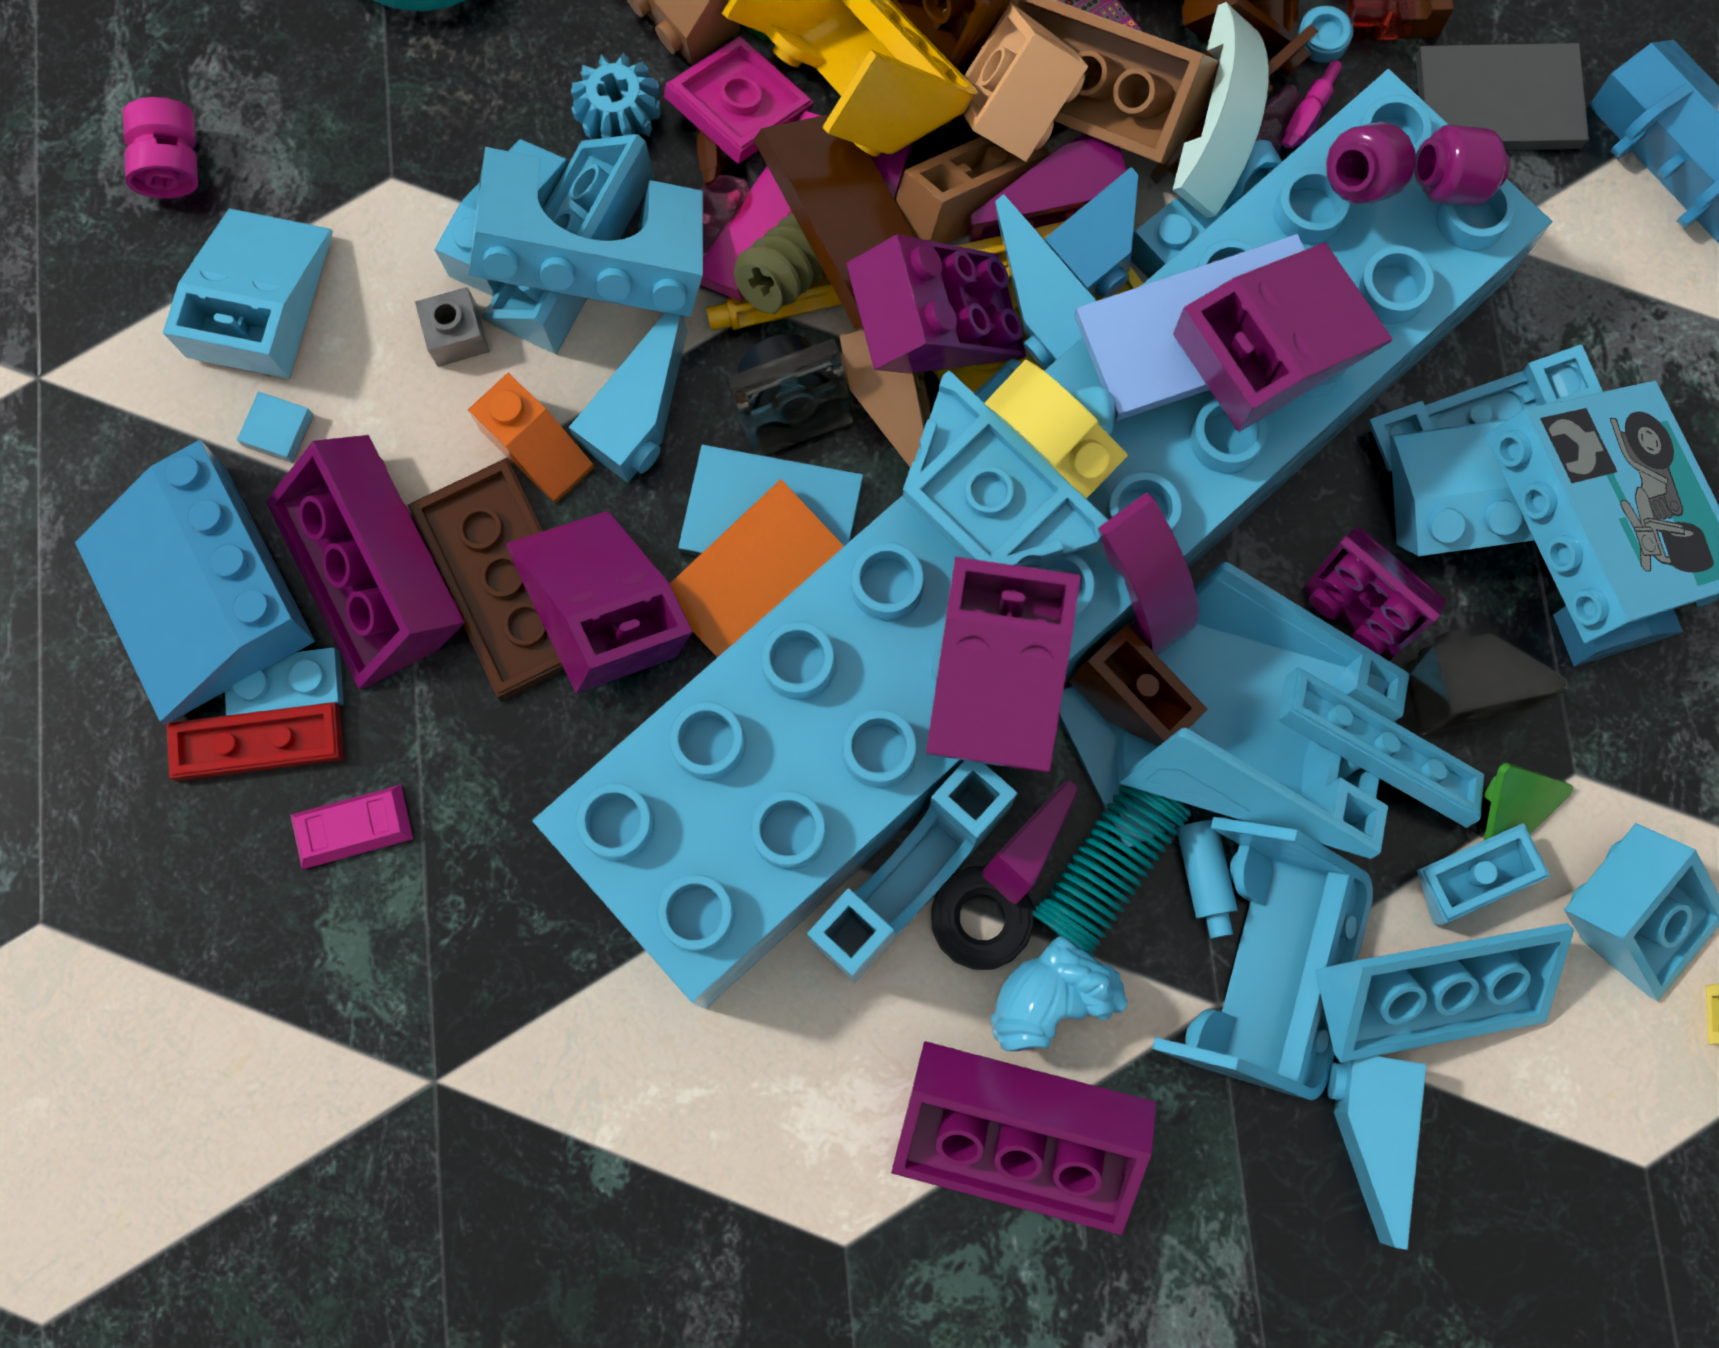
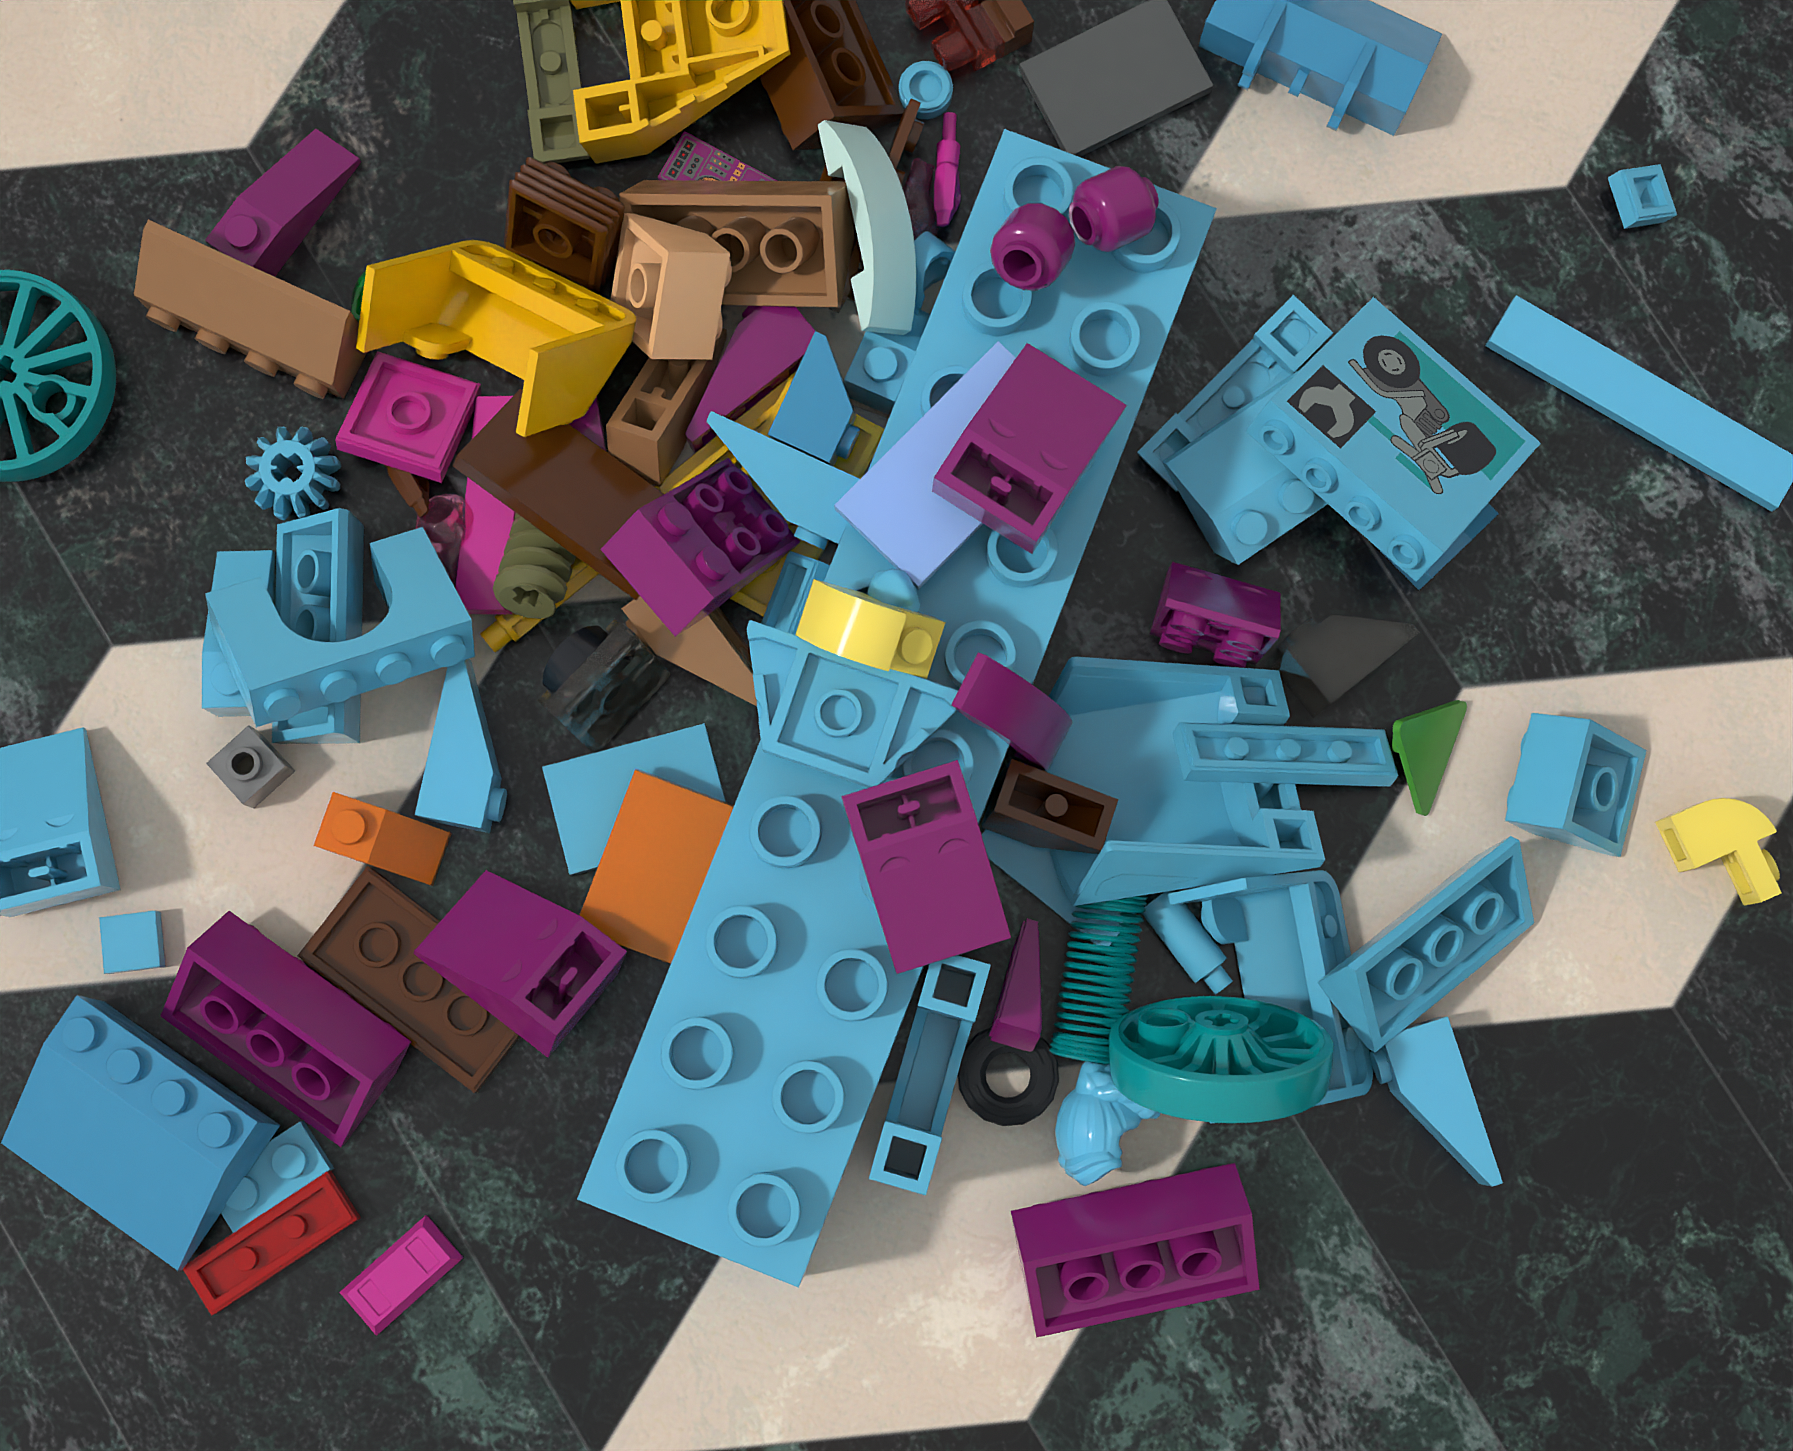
camera: 30 degrees left, 5 degrees up
(1192, 992) = (1220, 1059): none -> teal piece
(1481, 874) = (1421, 823): medium azure slope -> none

